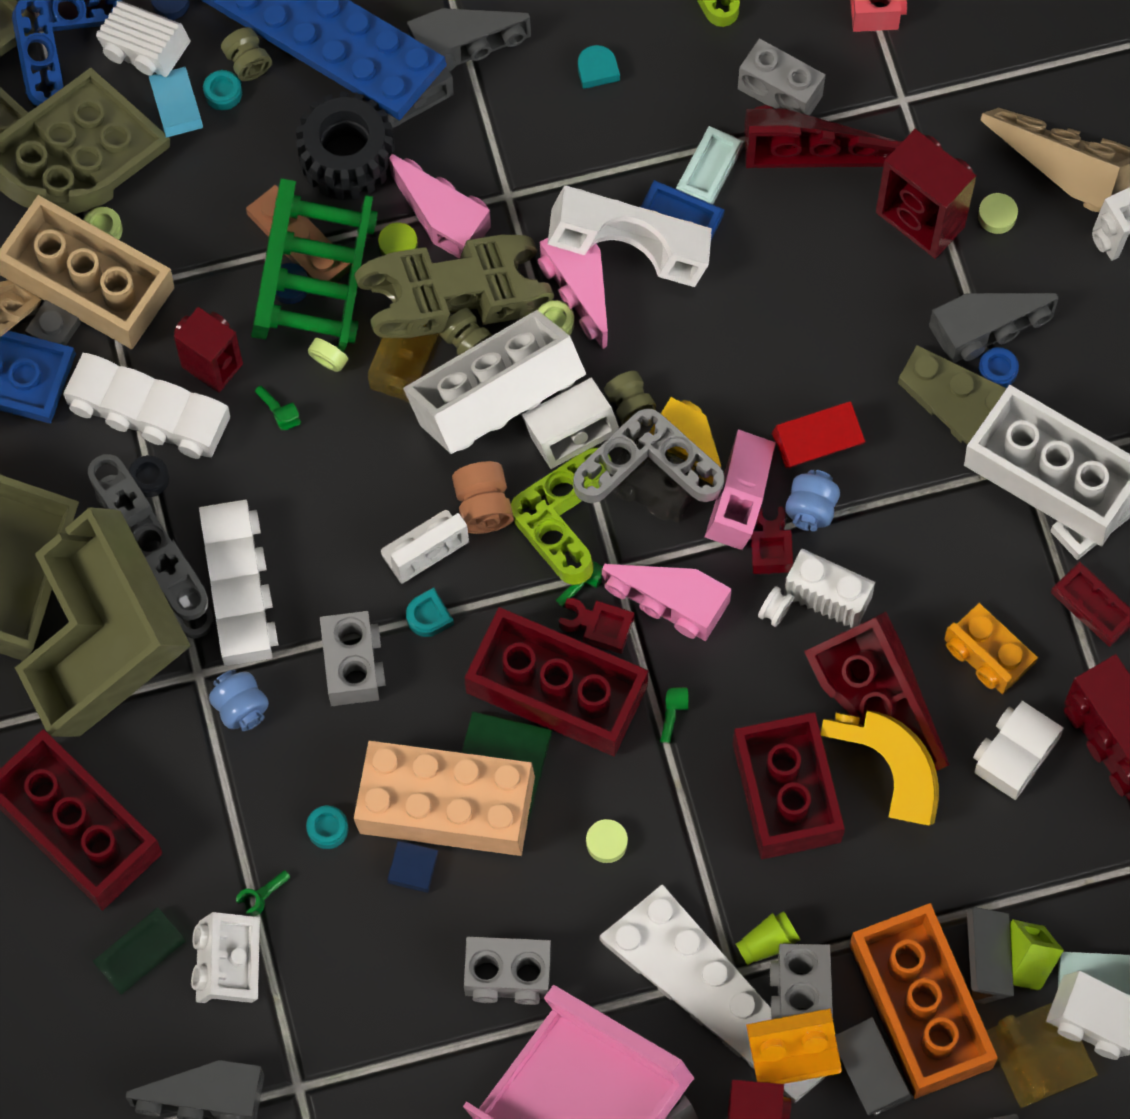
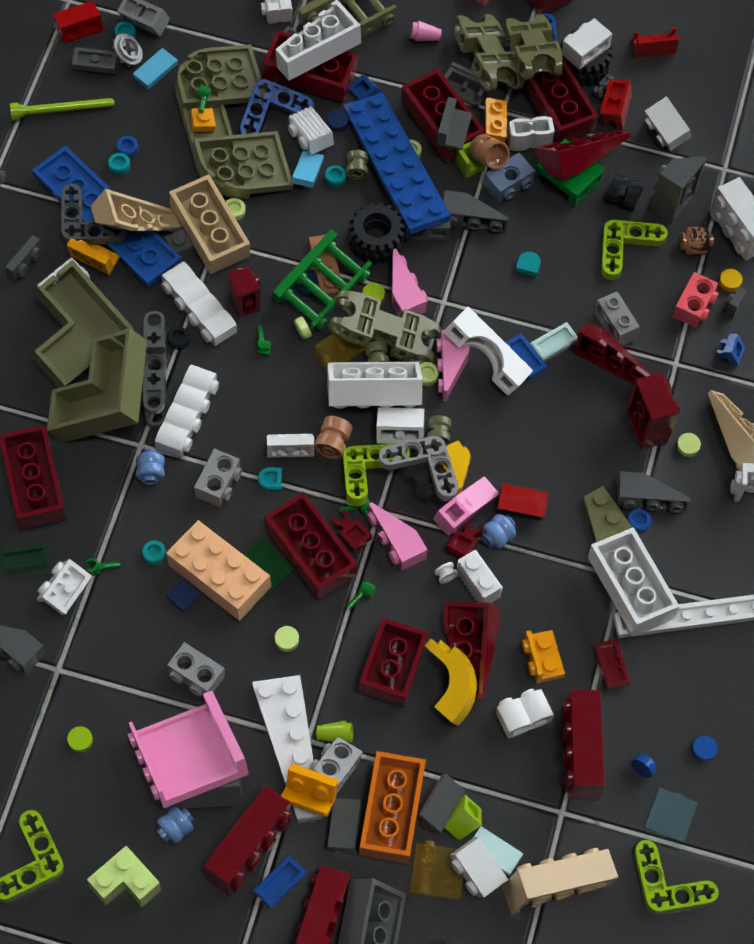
camera: 25 degrees right, 5 degrees down
(974, 31) = (732, 350): none -> blue tile

